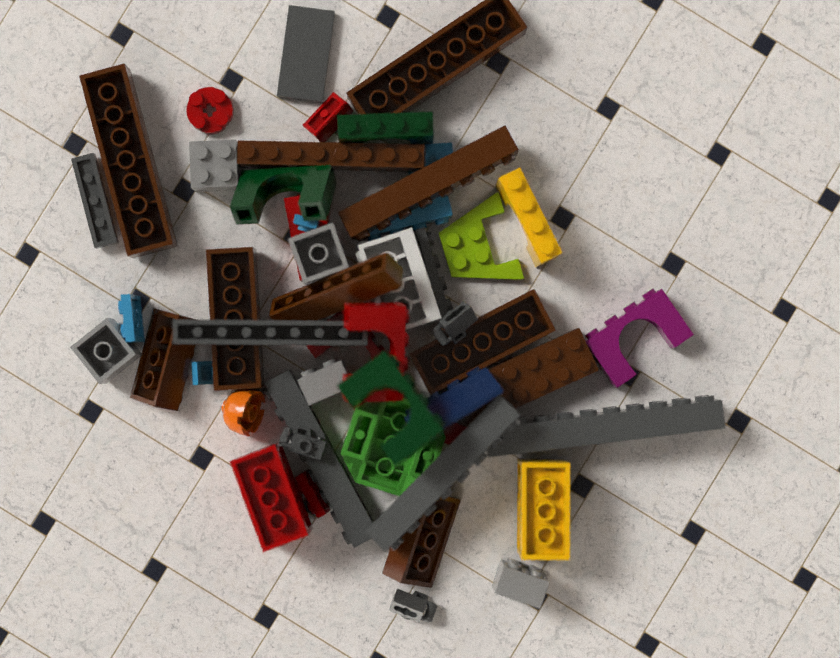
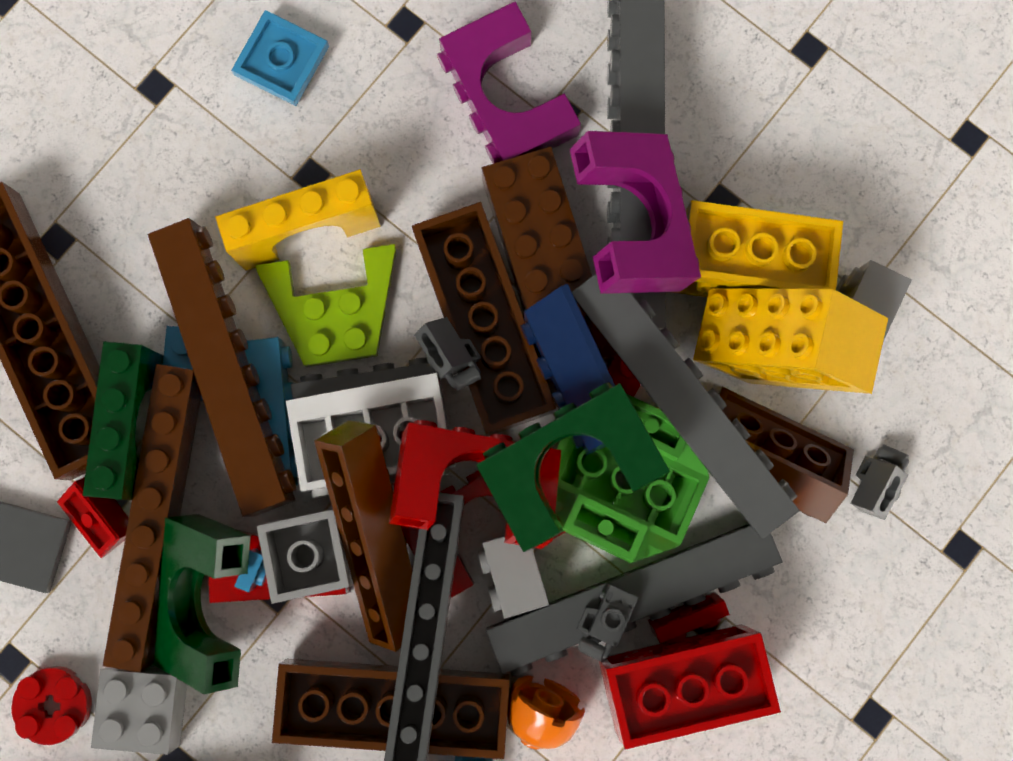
camera: 80 degrees left, 5 degrees down
(491, 535) = (792, 338): none -> yellow brick
(586, 431) = (647, 169): none -> magenta arch
(637, 187) = (280, 58): none -> dark azure plate

